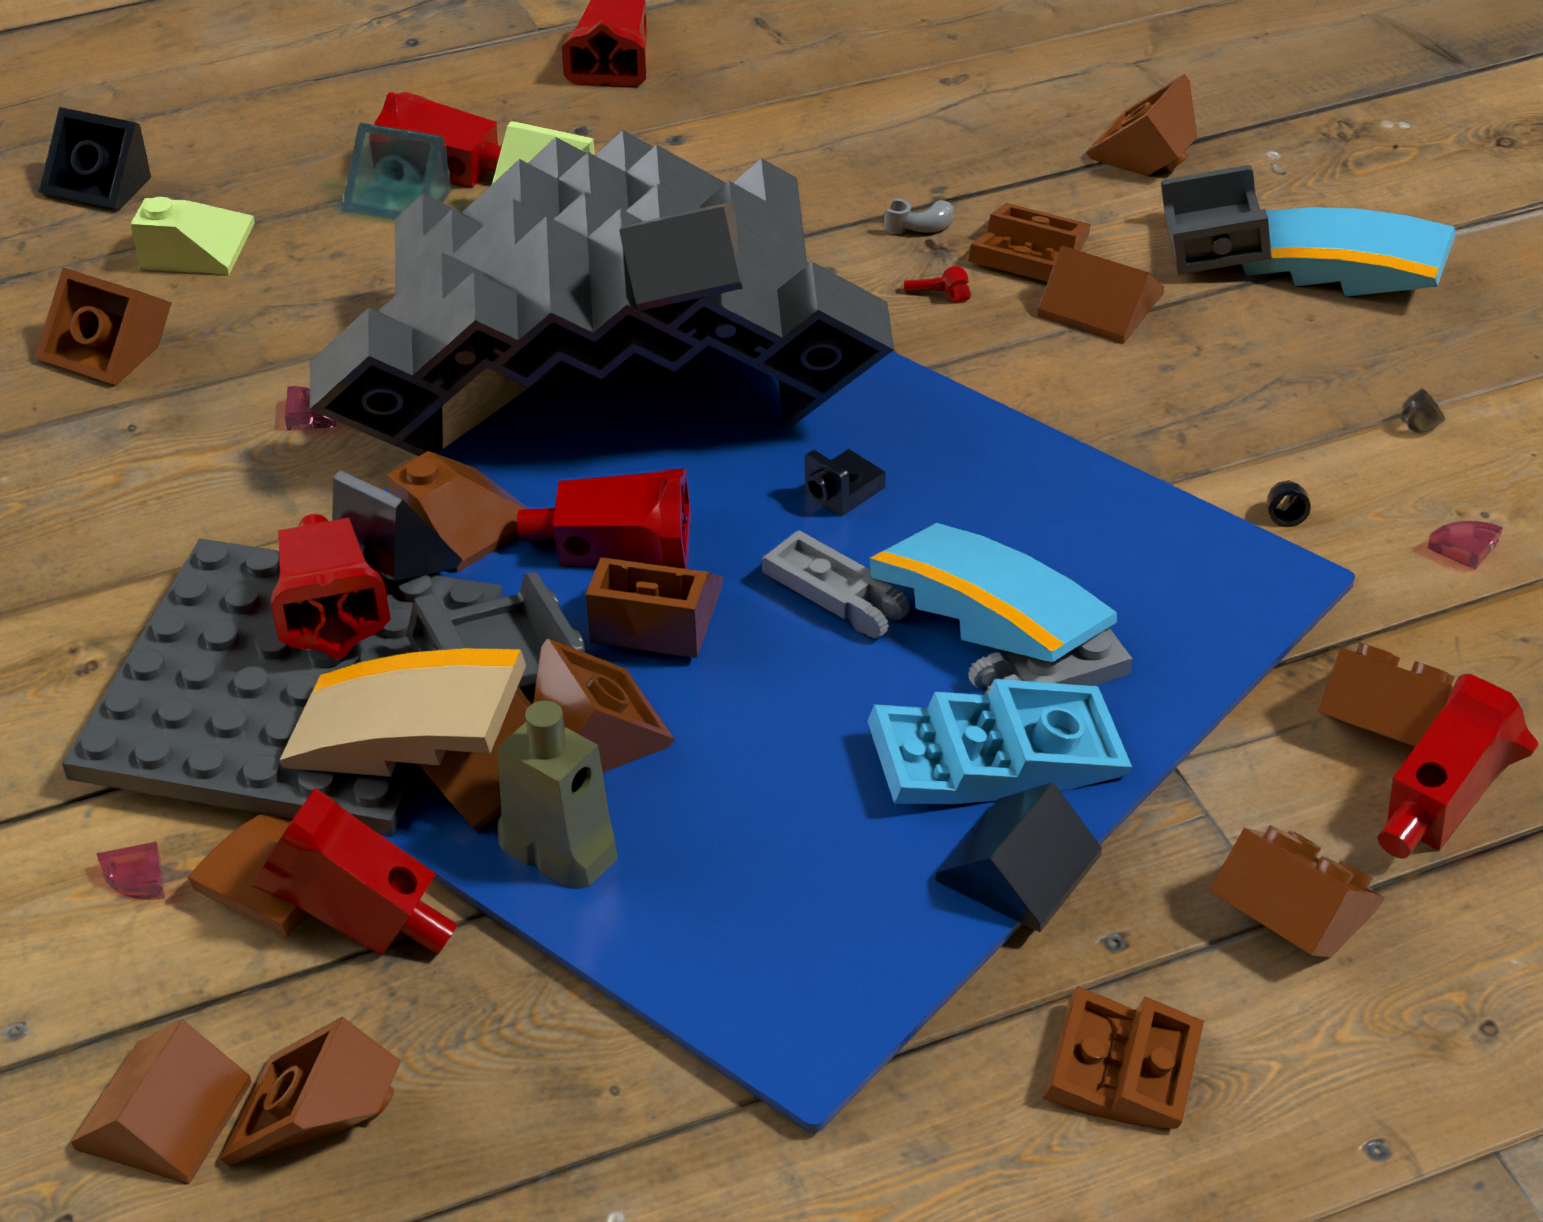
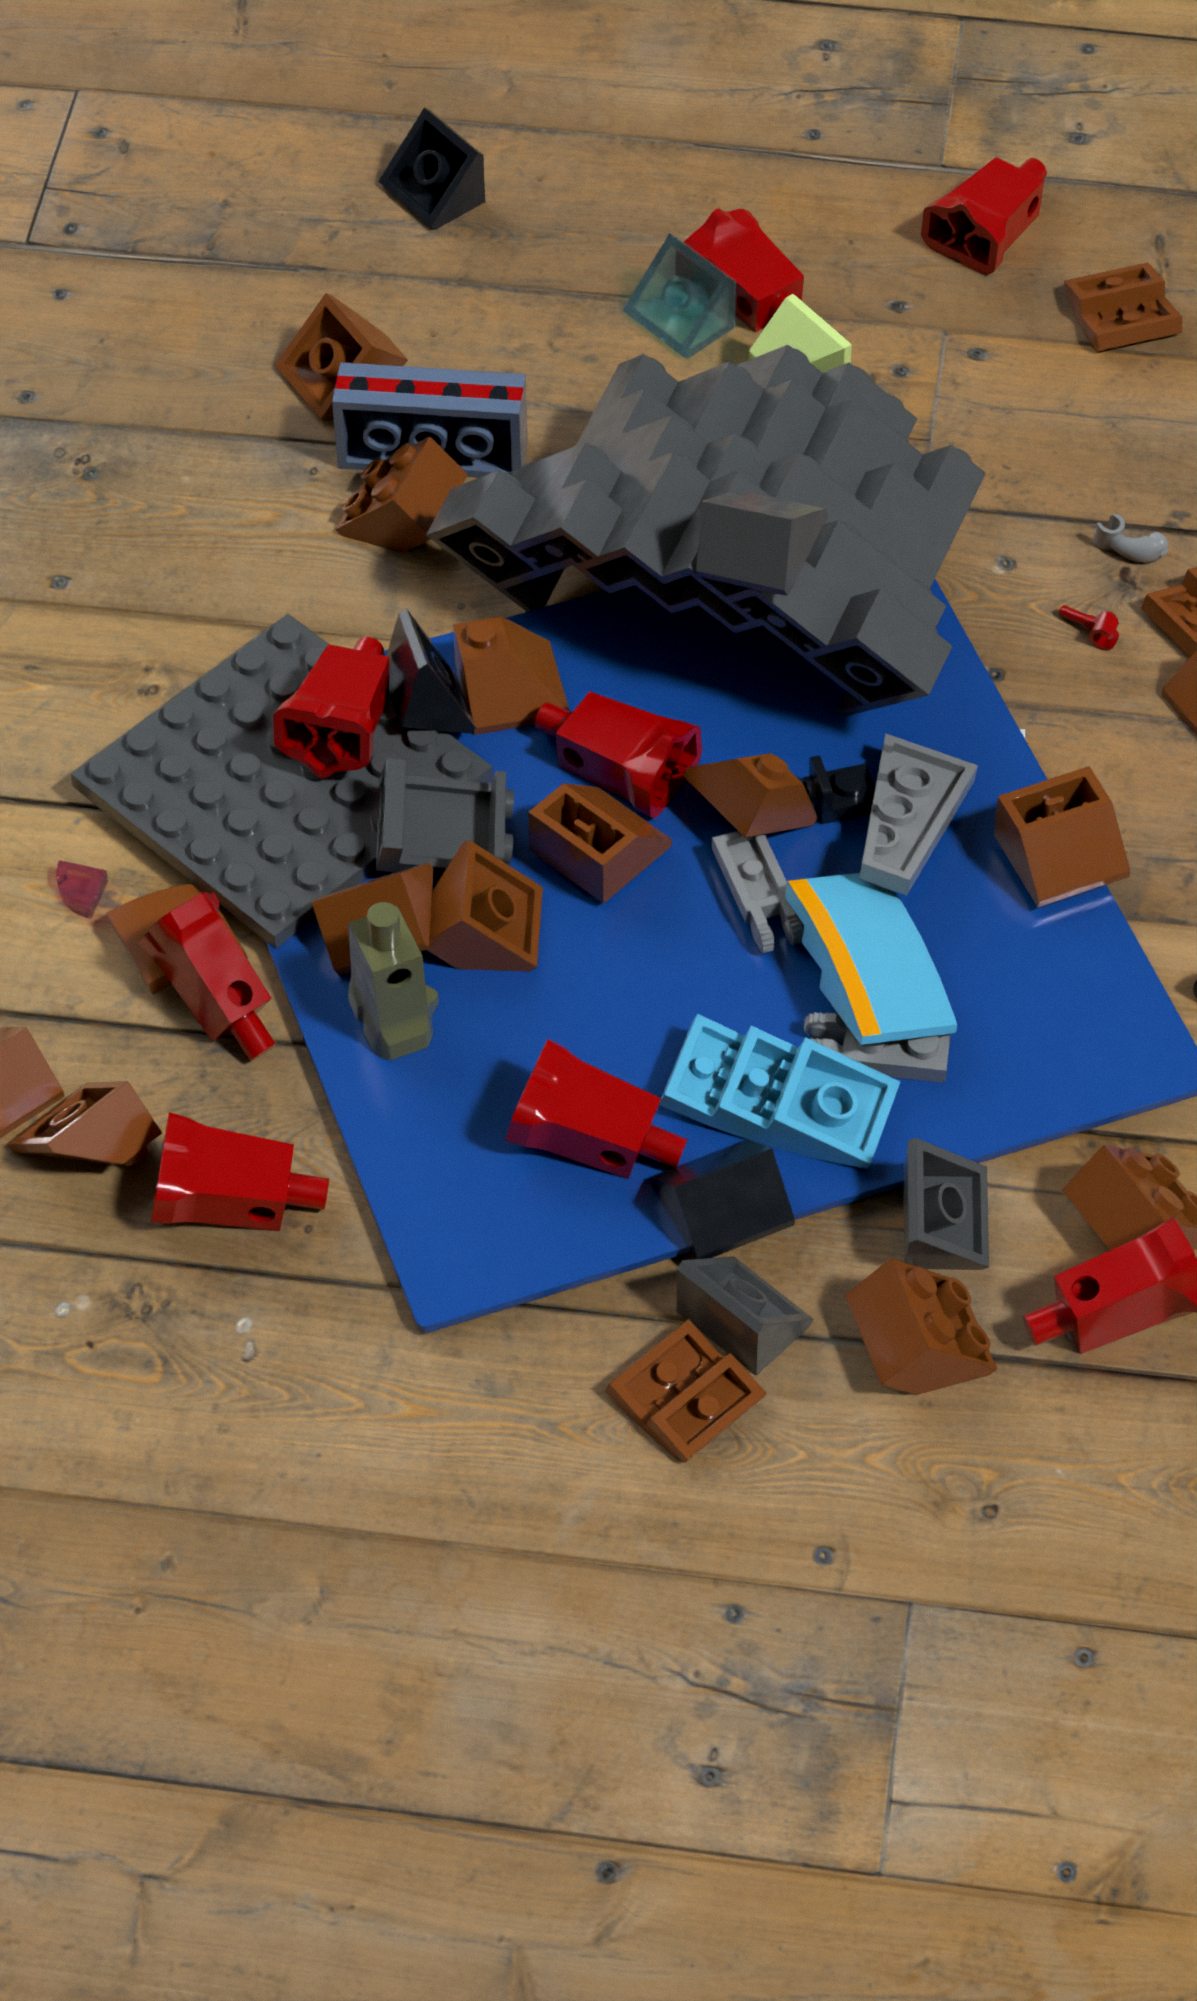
camera: 30 degrees right, 10 degrees up
(188, 236) = (471, 289): yellowish green slope -> none
(230, 335) = (468, 413): none -> sand blue brick
(244, 409) = (401, 496): none -> dark orange slope
(405, 710) = (323, 853): tan slope -> none
(501, 1074) = (228, 1178): none -> red piece
(771, 68) = (1123, 306): none -> dark orange slope
(778, 497) = (754, 794): none -> dark orange slope
(841, 839) = (590, 1116): none -> red piece
(925, 465) = (911, 810): none -> light grey wing
(1071, 432) = (1061, 836): none -> dark orange slope
(1113, 960) = (738, 1310): none -> dark grey slope
(1222, 778) = (944, 1209): none -> dark grey slope

